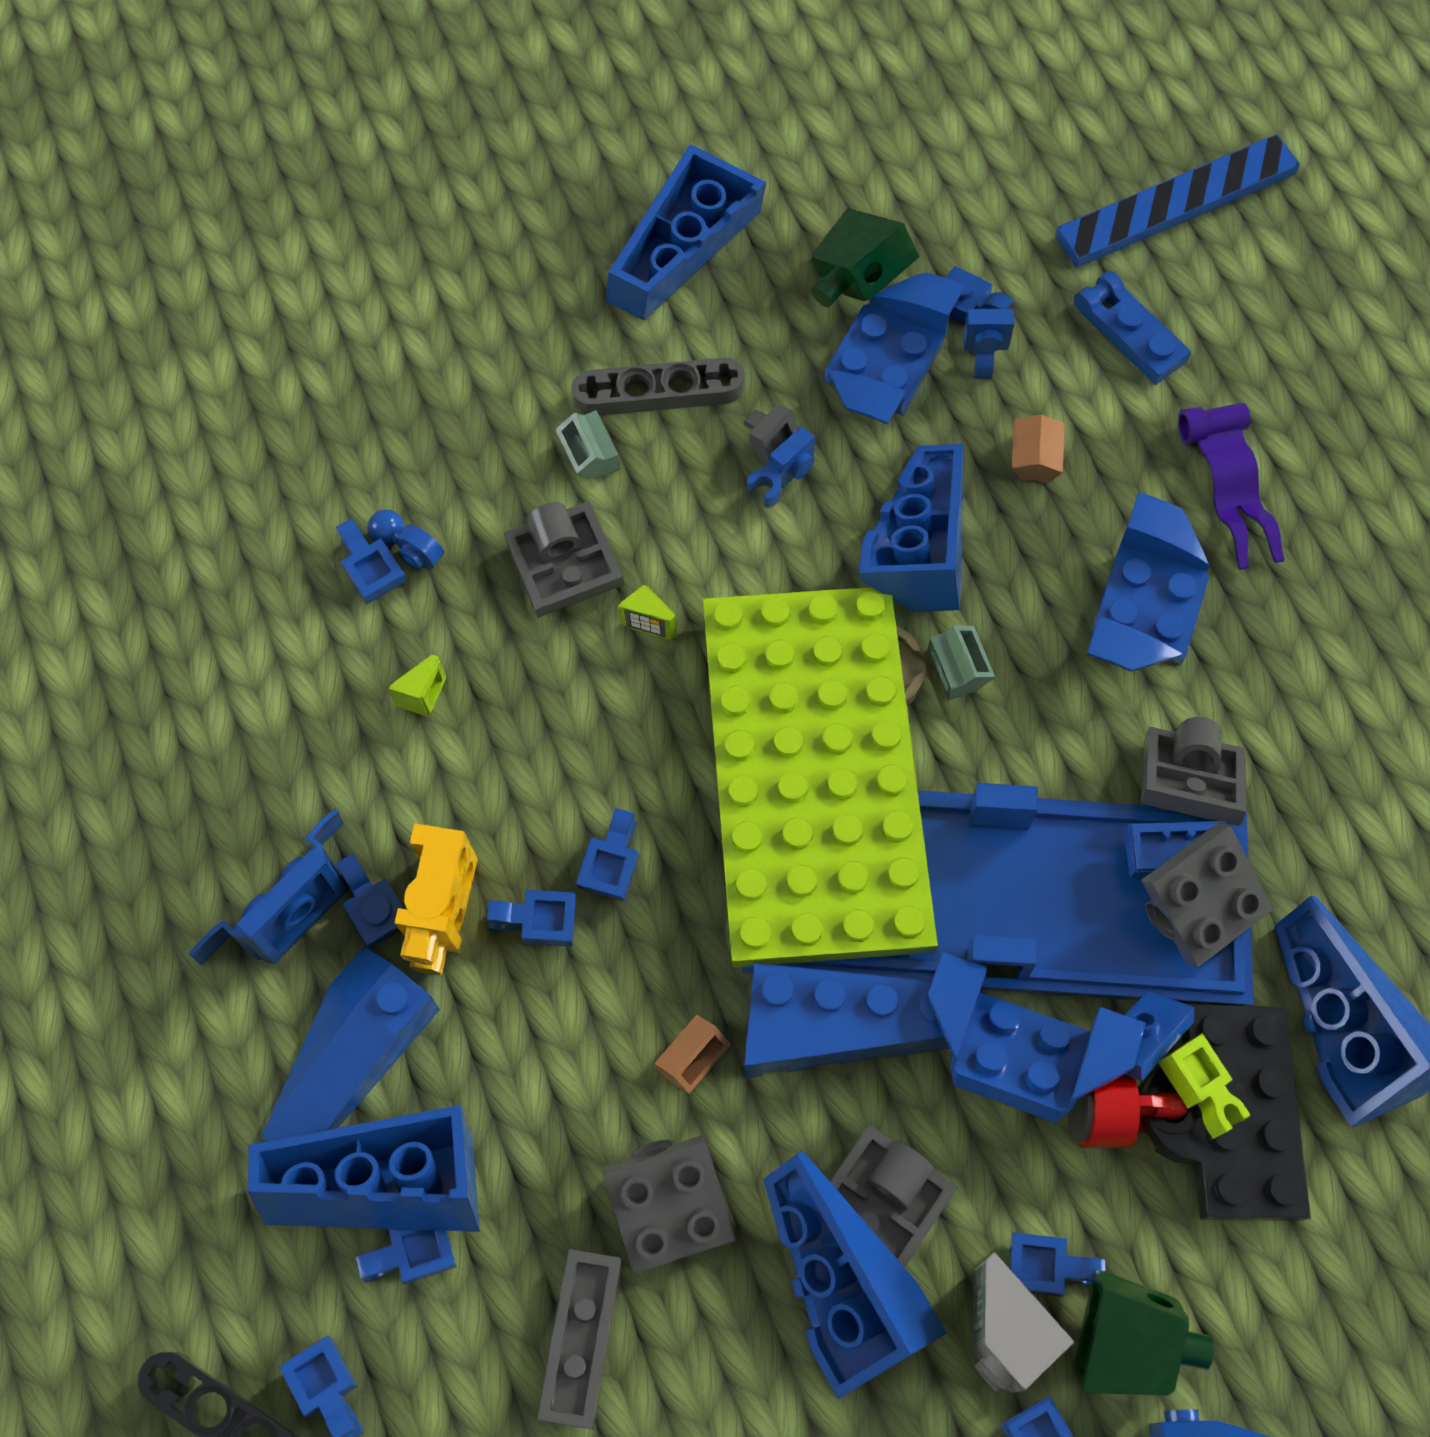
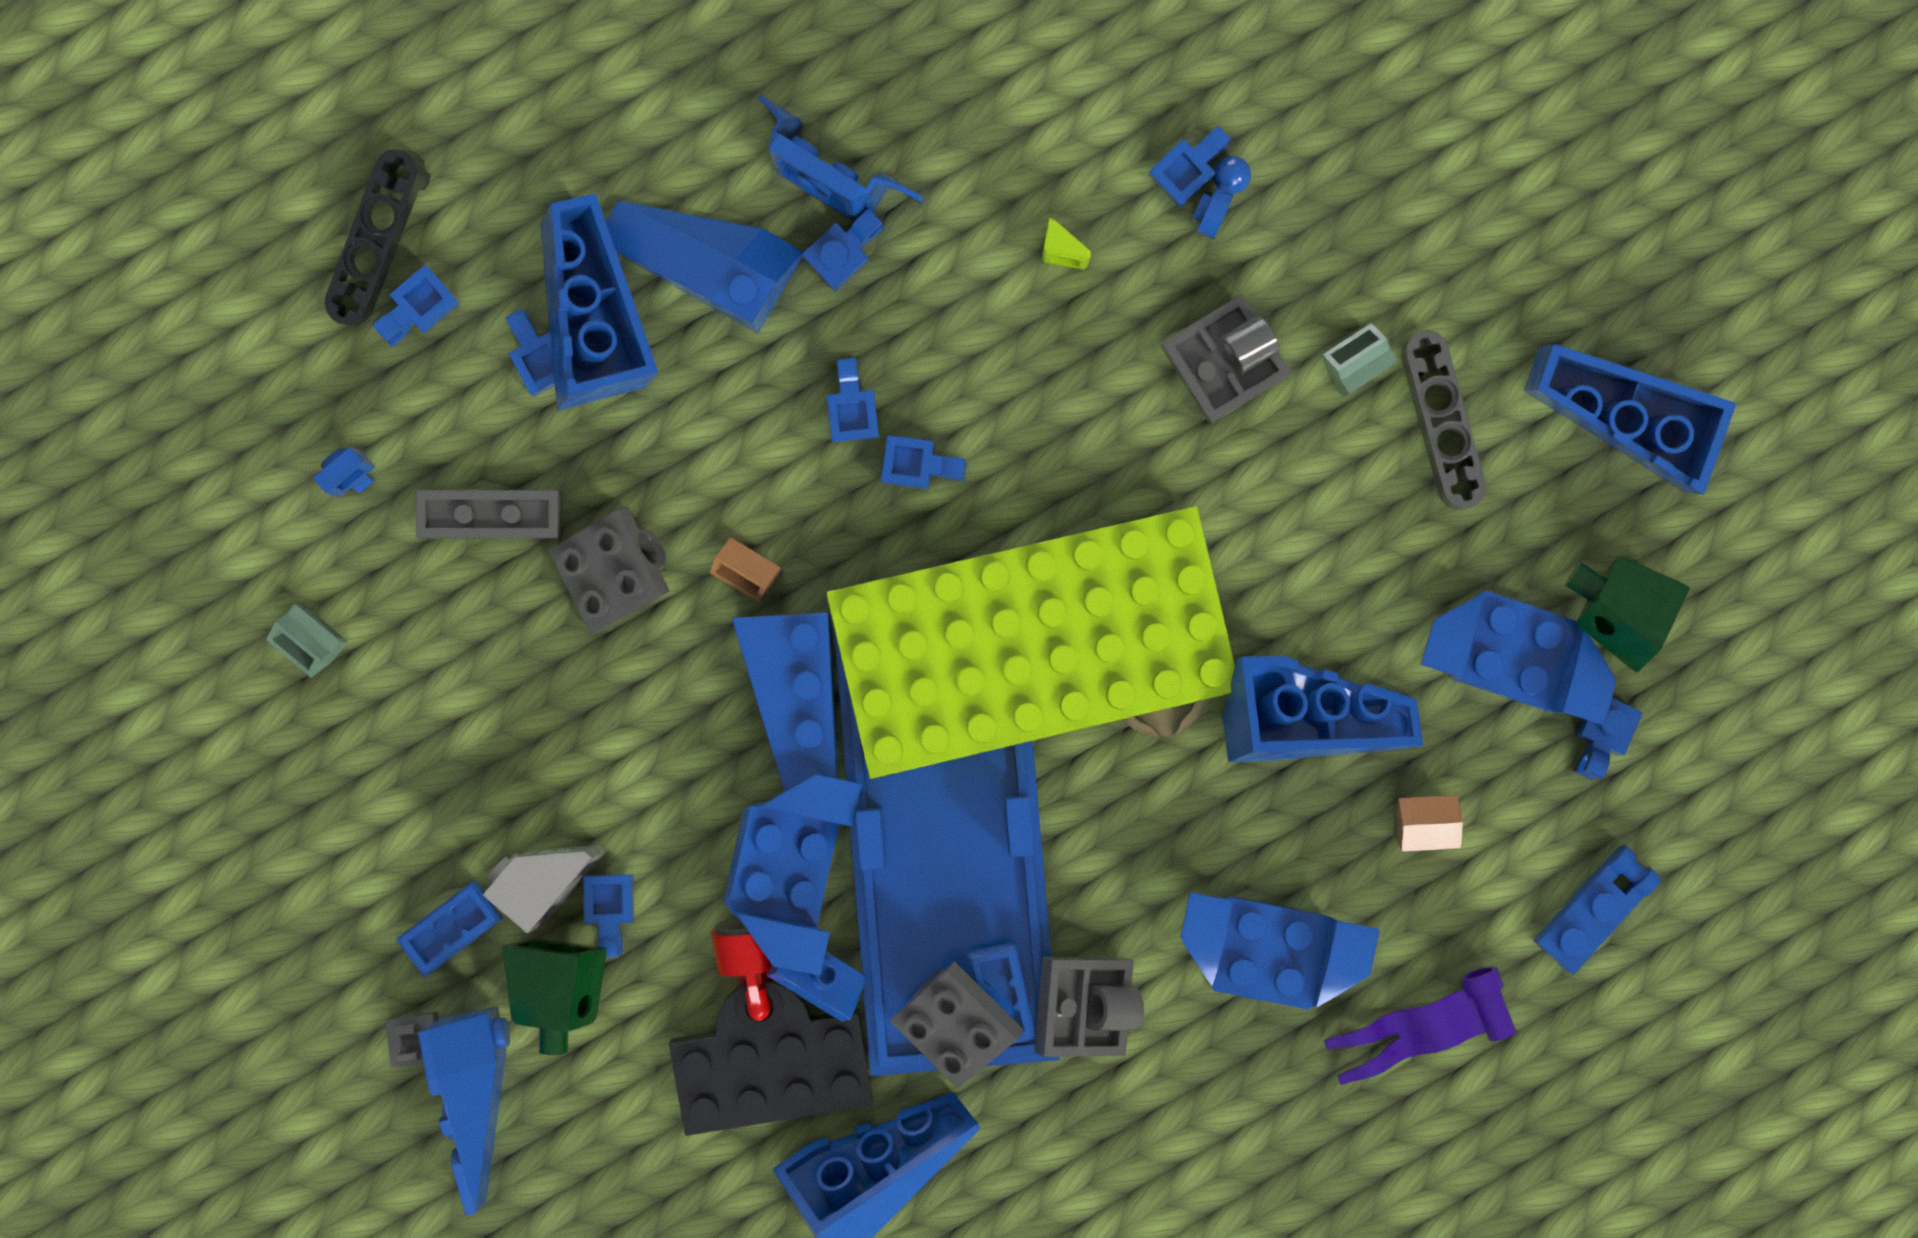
camera: 75 degrees right, 20 degrees up
(436, 897) = (846, 309): yellow hips -> none
(647, 614) = (1177, 453): lime slope -> none
(770, 430) = (1398, 547): dark grey tile -> none
(787, 462) = (1372, 571): blue plate -> none
(856, 1292) = (552, 750): blue wedge -> none
(893, 1191) = (642, 758): dark grey plate -> none
(960, 661) = (1176, 770): sand green piece -> none
(984, 334) = (1546, 756): blue plate -> none
(1176, 200) = (1772, 948): blue tile -> none
(1202, 1081) = (781, 1028): lime plate -> none

